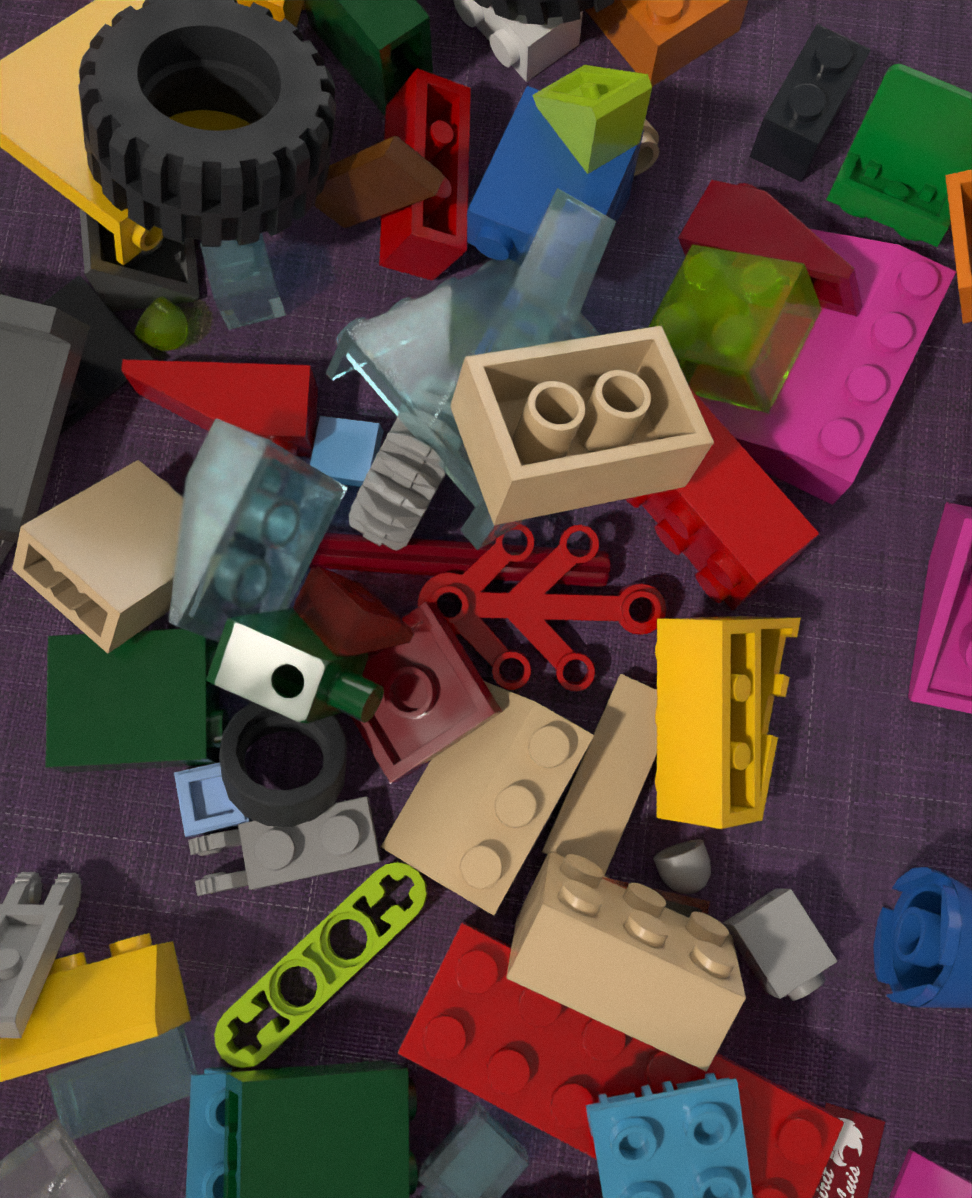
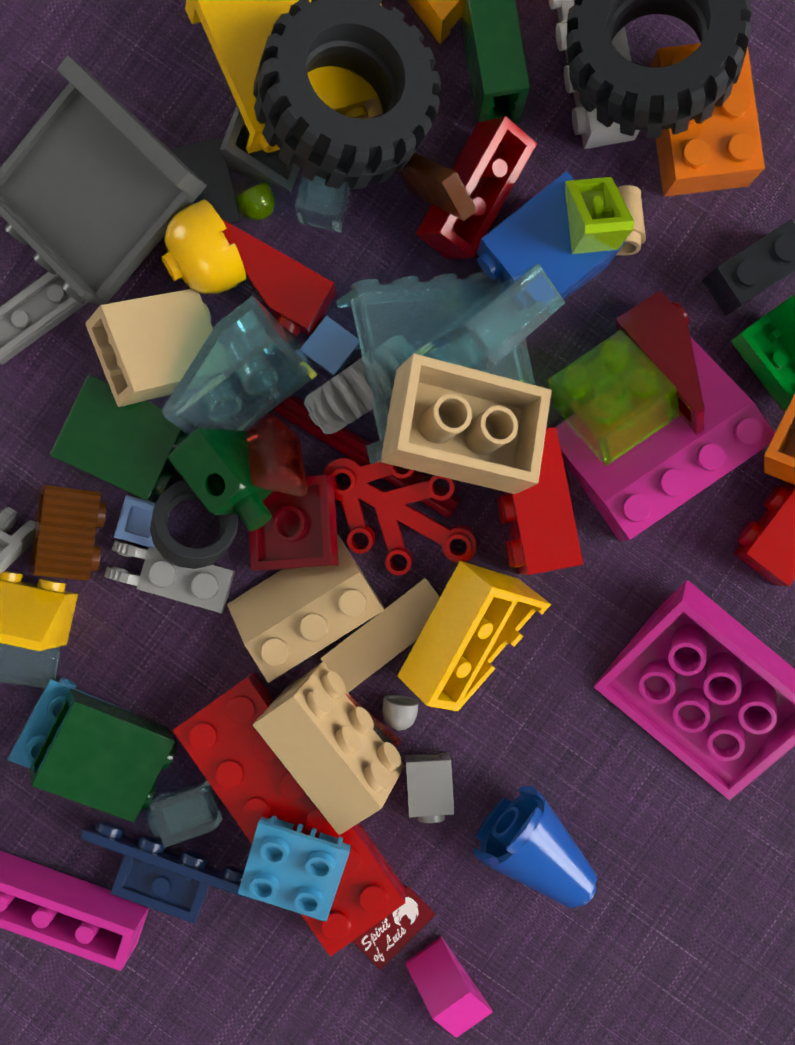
camera: 25 degrees right, 10 degrees up
(118, 862) = (67, 533): none -> reddish brown brick
(121, 408) = (201, 251): none -> yellow cylinder
(327, 967) = (159, 656): lime beam -> none

